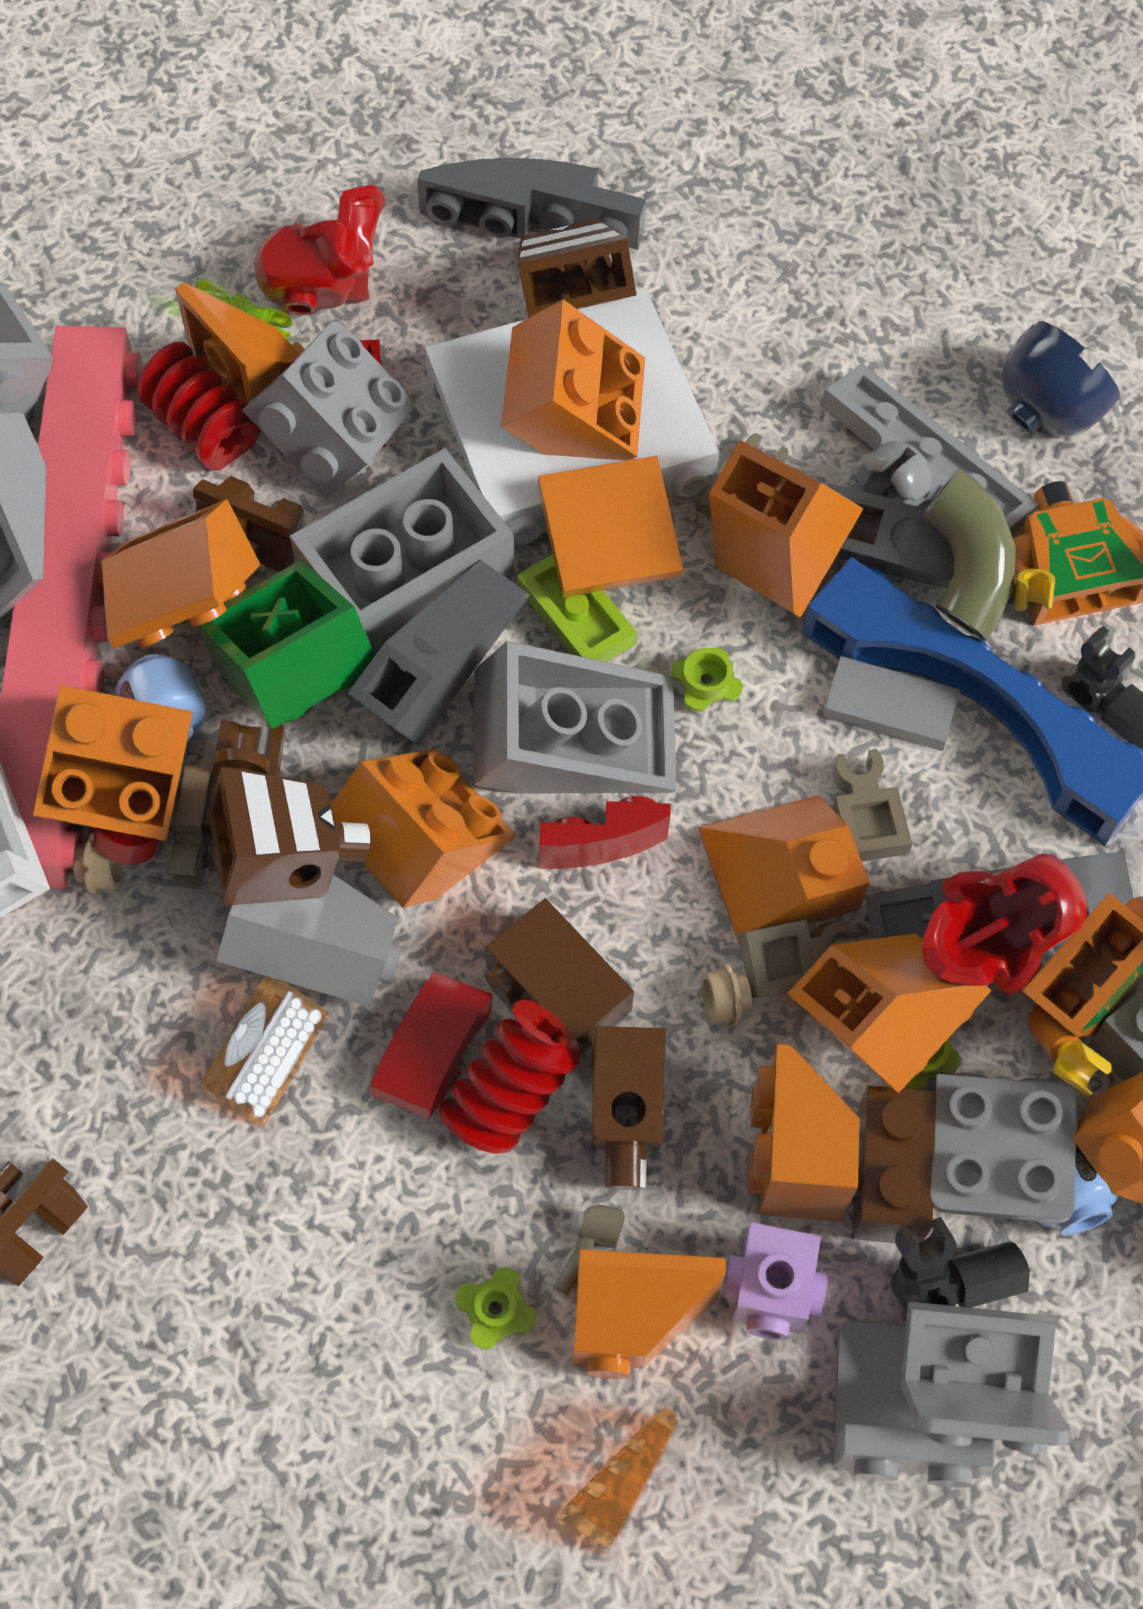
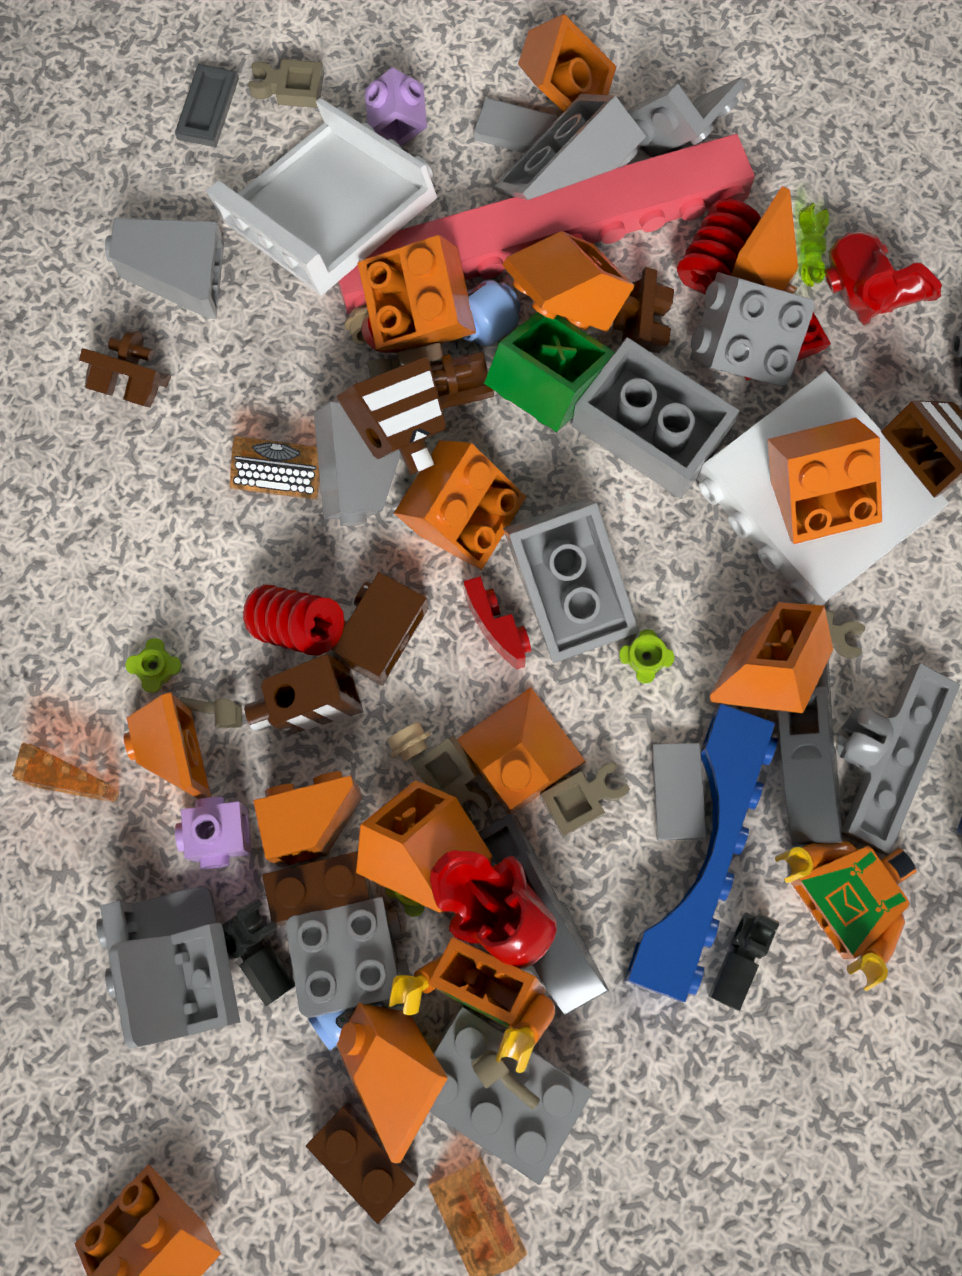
camera: 75 degrees right, 10 degrees up
(429, 1044) = (311, 563): red slope -> none
(438, 651) = (581, 465): dark grey slope -> none
(583, 623) = (664, 549): lime plate -> none
(609, 526) = (729, 544): orange tile -> none
(981, 553) = (808, 815): olive cylinder -> none

